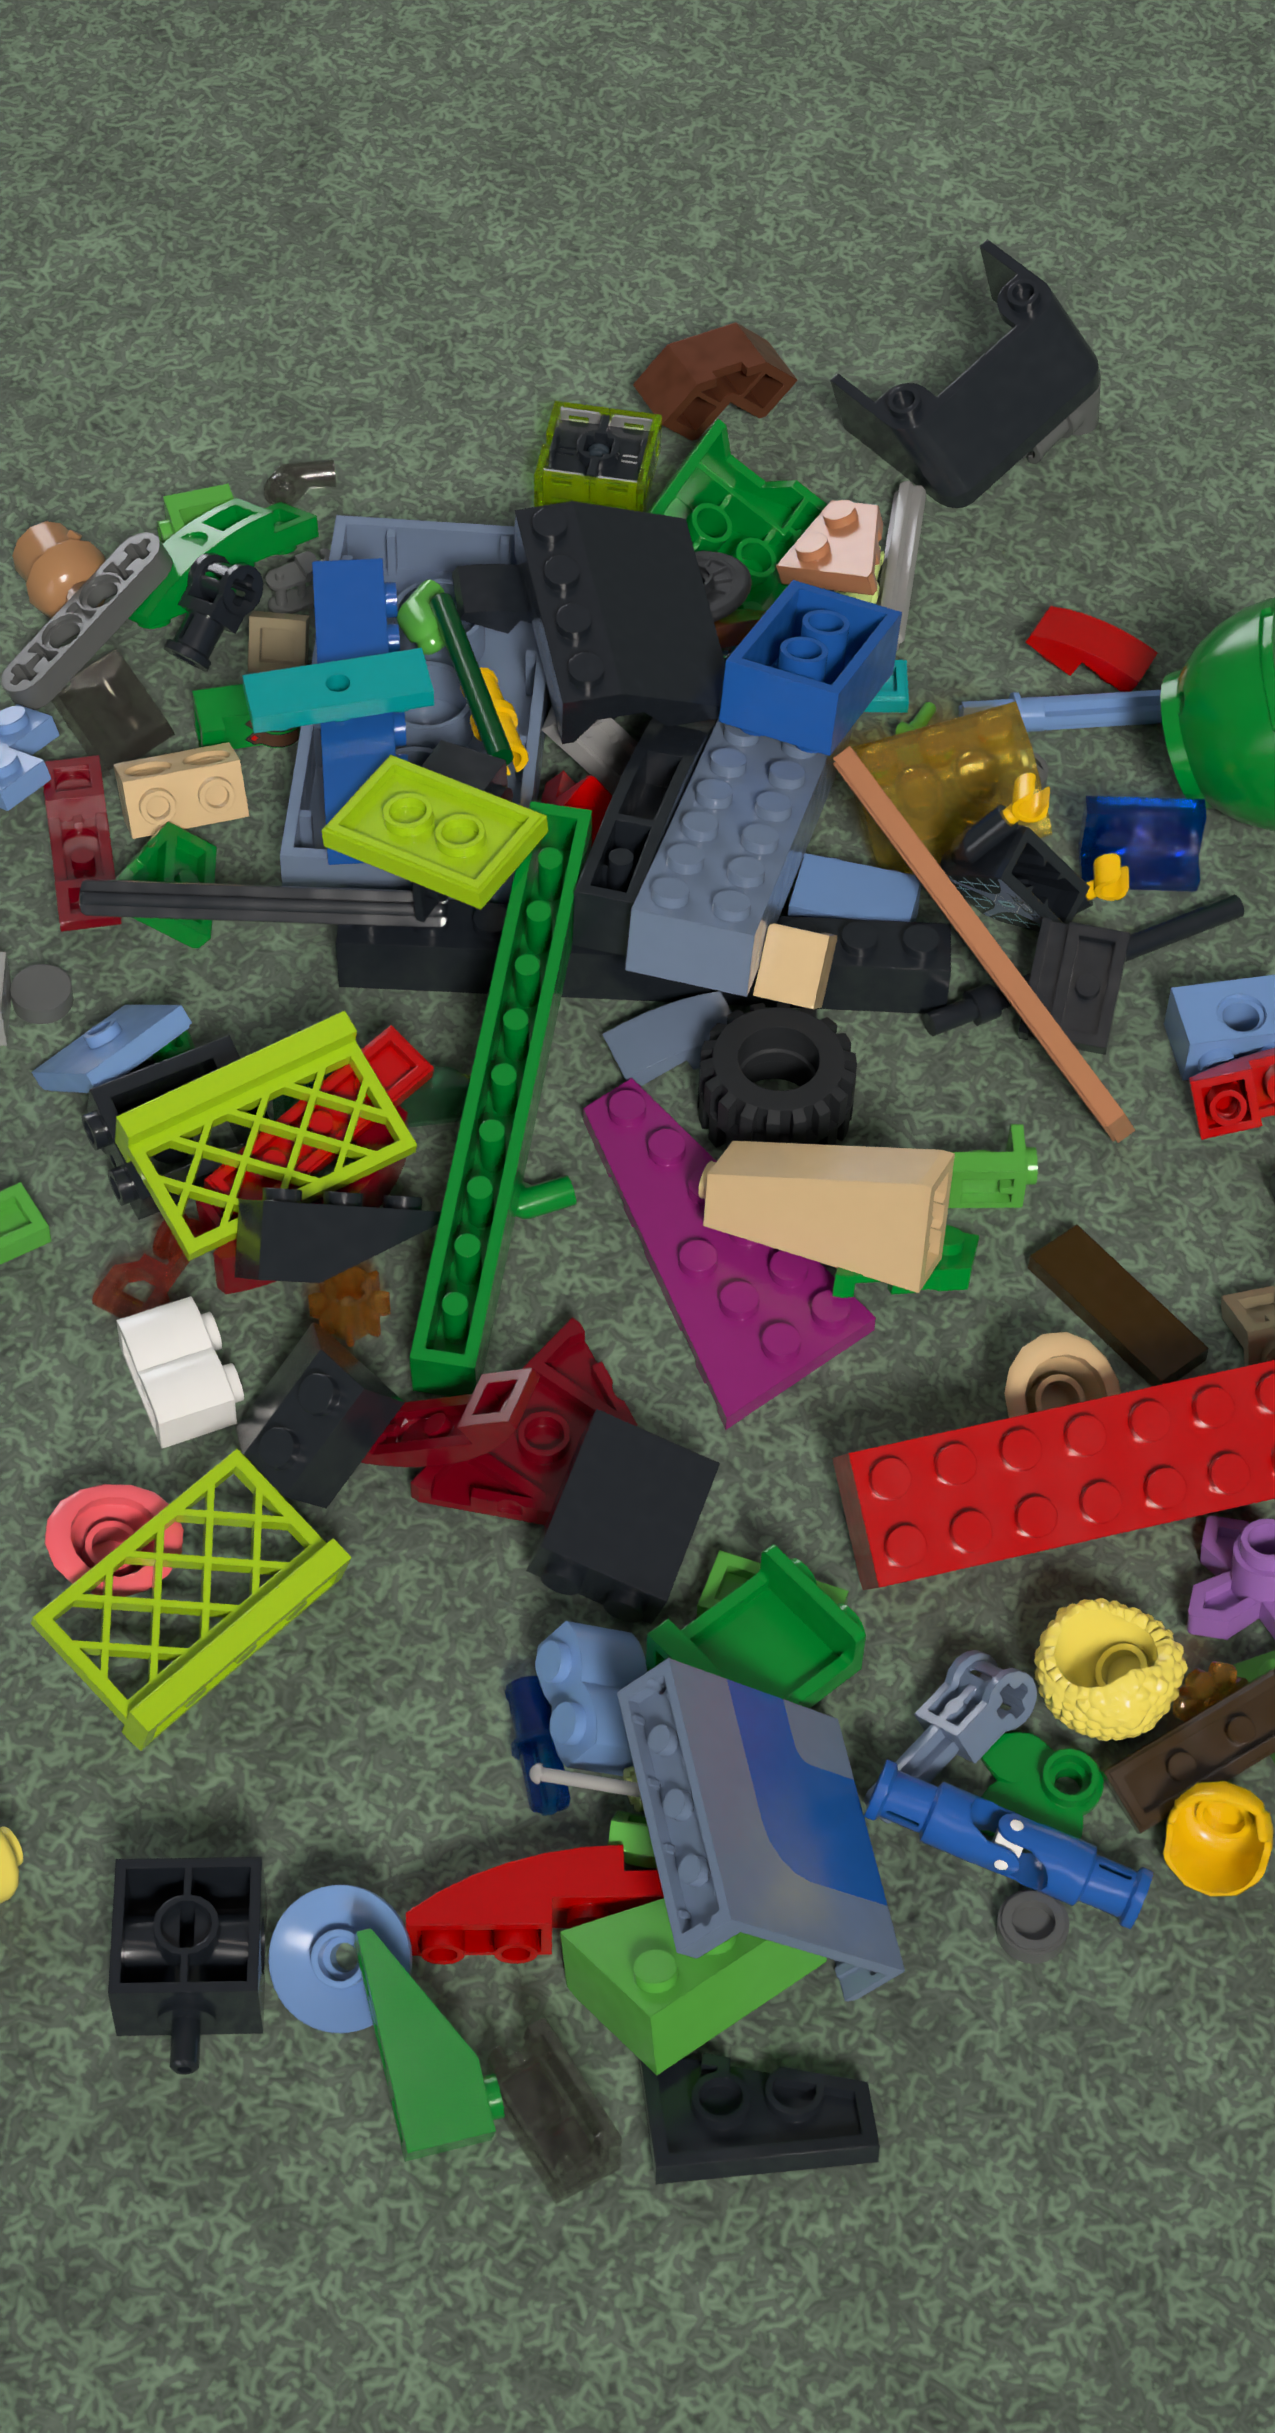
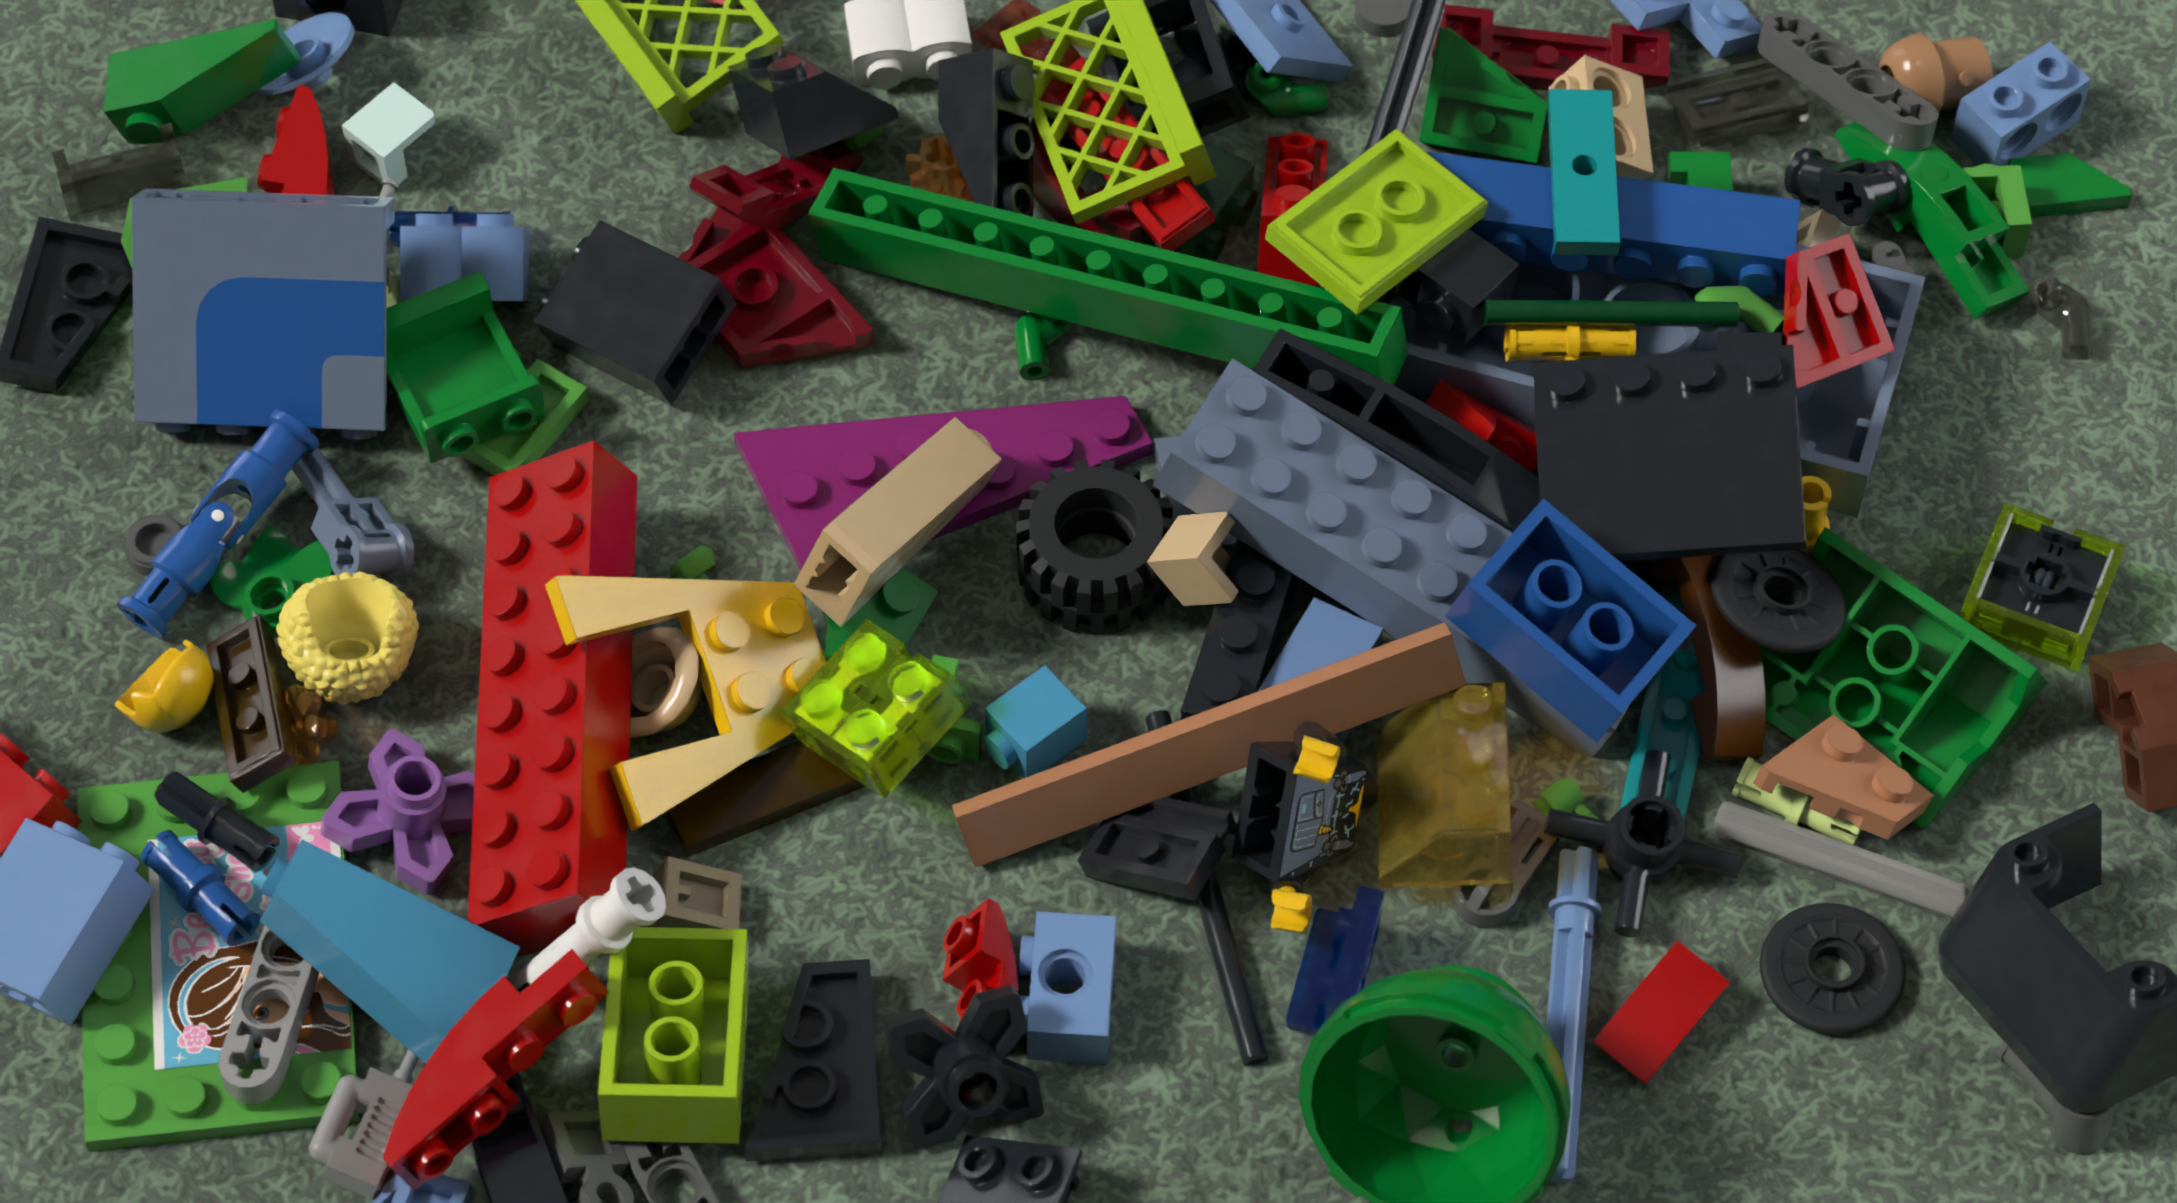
camera: 105 degrees right, 5 degrees up
(82, 503) = (2021, 108): none -> medium blue brick
(143, 493) = (2068, 185): none -> green tile
(362, 984) = (1292, 172): none -> red slope
(421, 540) = (1831, 311): none -> red wing
(433, 1830) = (383, 130): none -> light aqua panel
(889, 1421) = (694, 564): none -> bright green rock
(943, 670) = (1647, 862): none -> black bar
(971, 575) = (1827, 1005): none -> black wheel
(986, 1094) = (1034, 724): none -> dark azure brick
(1009, 1307) = (752, 661): none -> yellow wing
(1036, 1194) = (875, 708): none -> clear neon green piece

